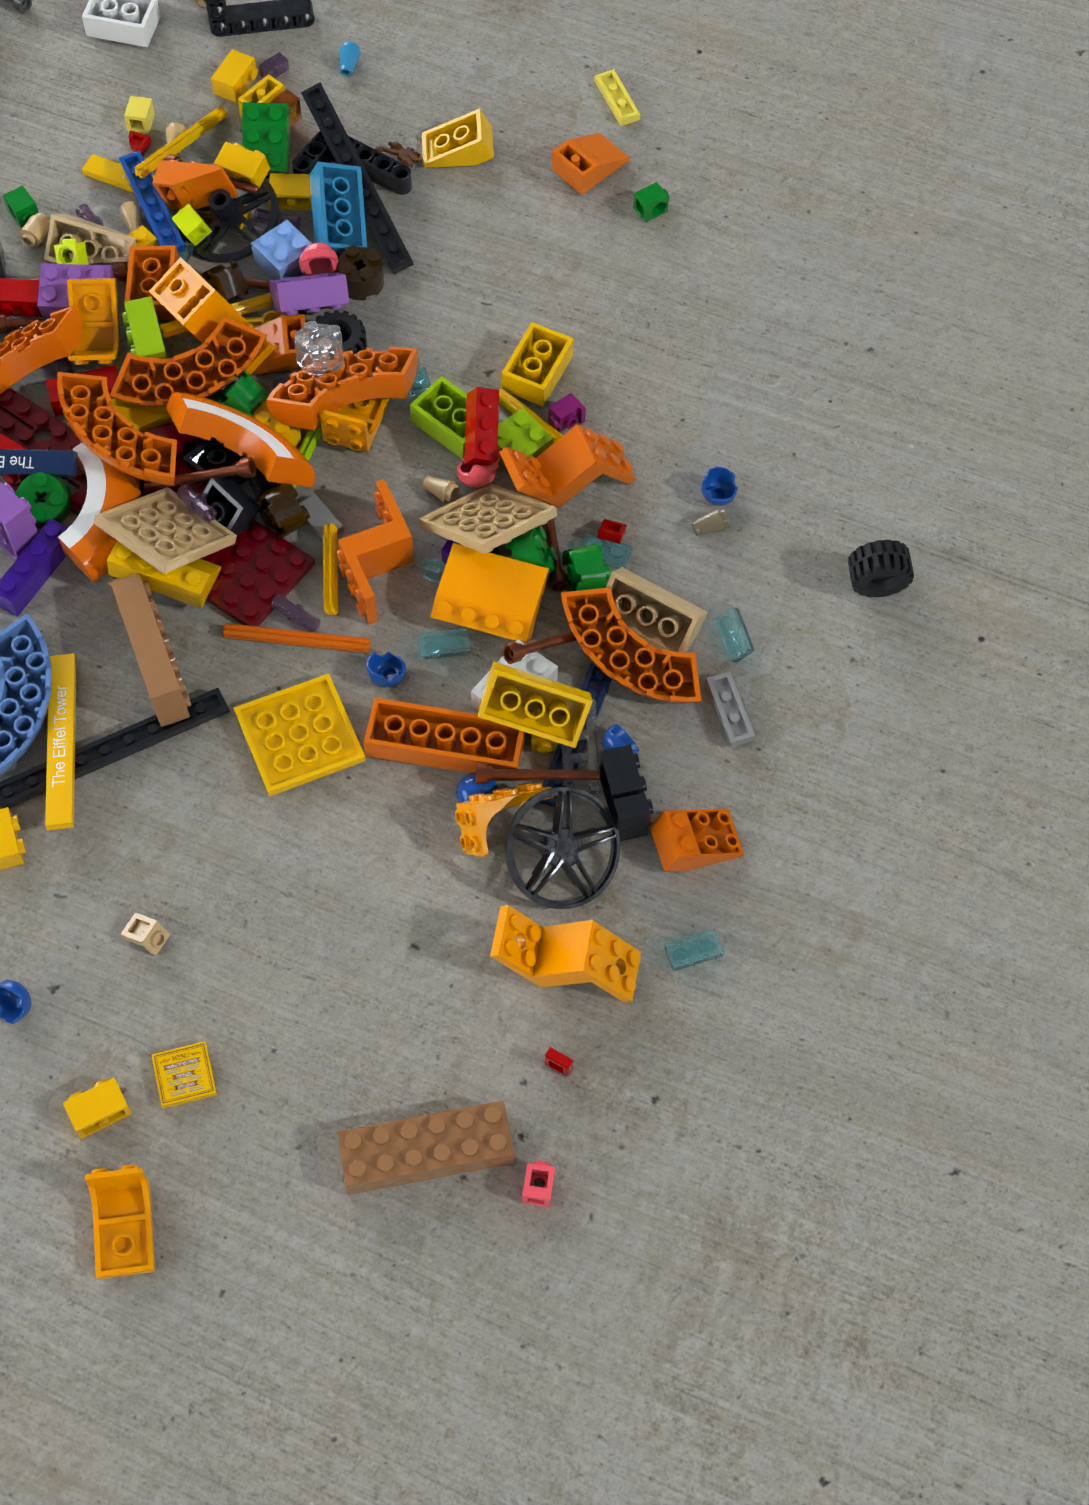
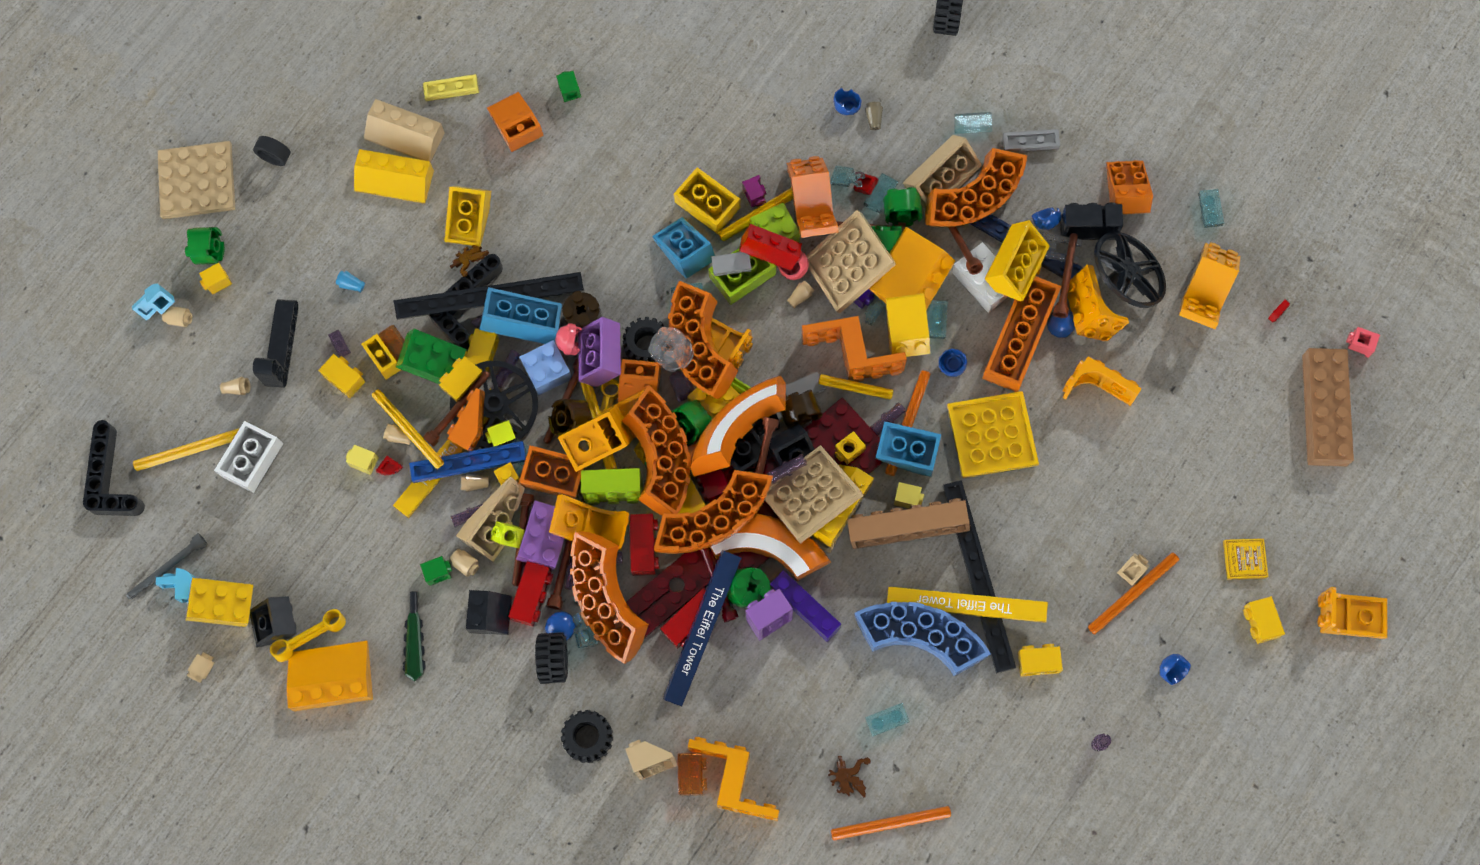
camera: 70 degrees left, 10 degrees up
(113, 940) = (1133, 593): none -> orange axle
(196, 652) = (908, 495): none -> light yellow brick
(245, 578) = (853, 441): none -> yellow brick
(255, 638) = (908, 448): none -> dark azure slope
(404, 819) = (1111, 381): none -> light orange bracket
(415, 600) = (908, 325): none -> yellow slope
(451, 394) = (731, 263): none -> light grey tile
(471, 357) = (684, 247): none -> dark azure slope
(487, 67) = (392, 176): none -> yellow slope
(546, 64) = (403, 131): none -> tan slope
(614, 506) = (844, 176): none -> clear light blue plate

